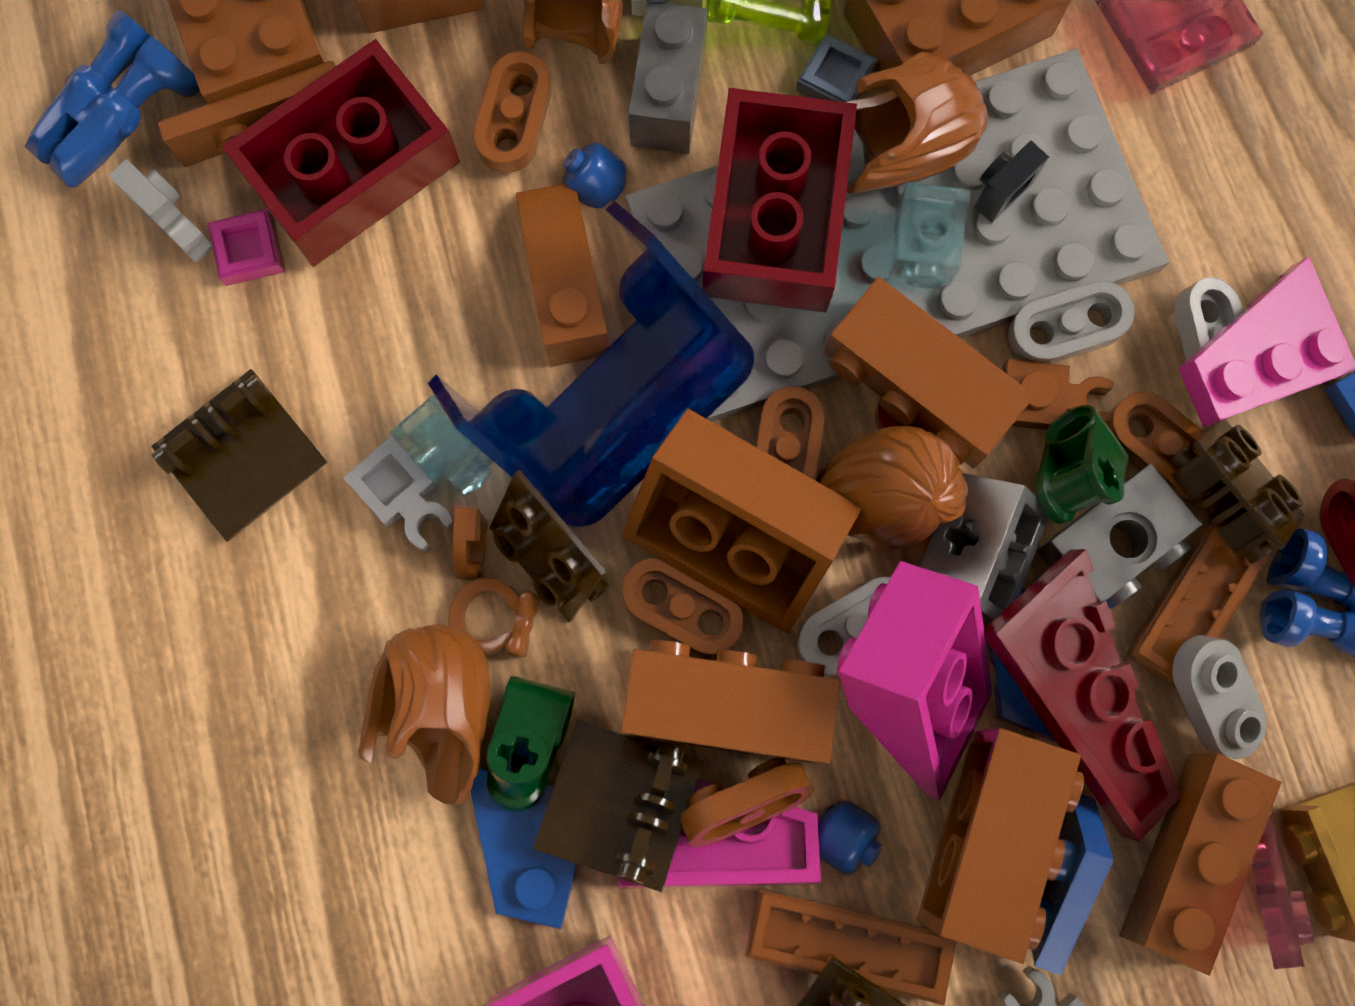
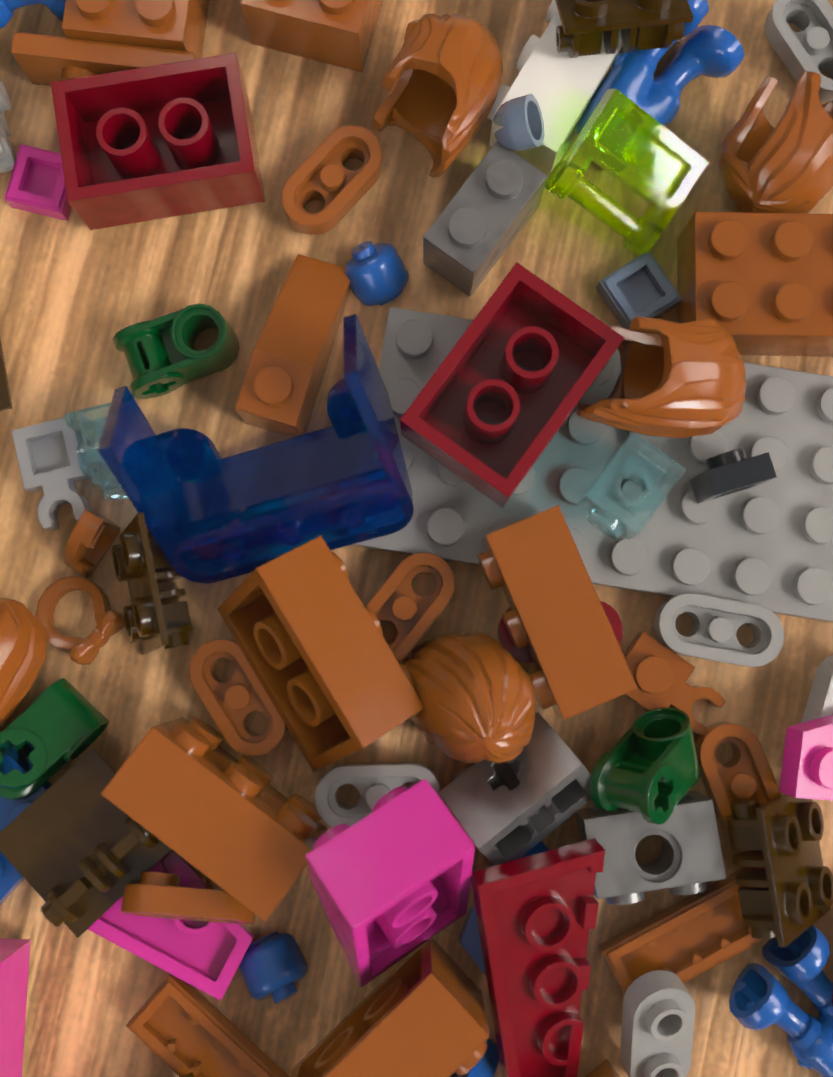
camera: 30 degrees right, 5 degrees up
(449, 331) = (164, 352): none -> dark green piece

